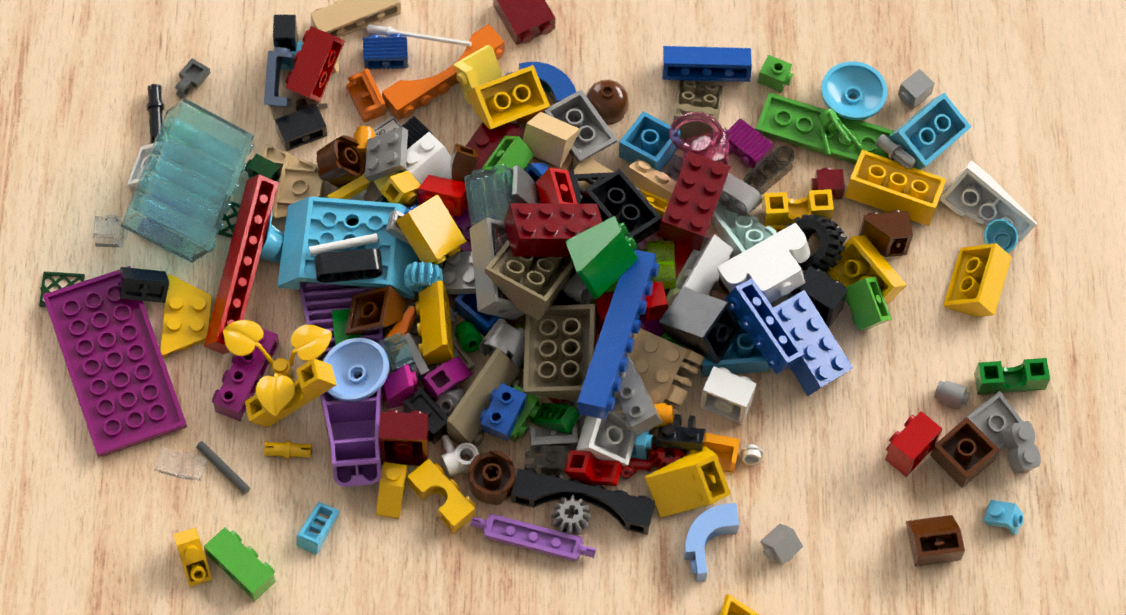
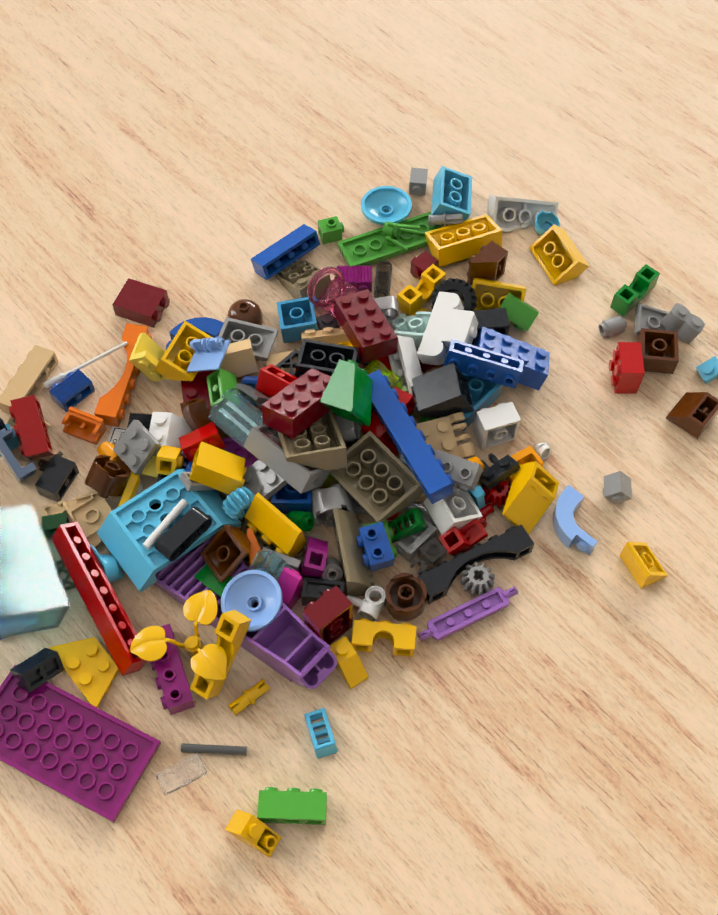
camera: 40 degrees left, 5 degrees down
(520, 116) = (208, 353): none -> light blue hinge

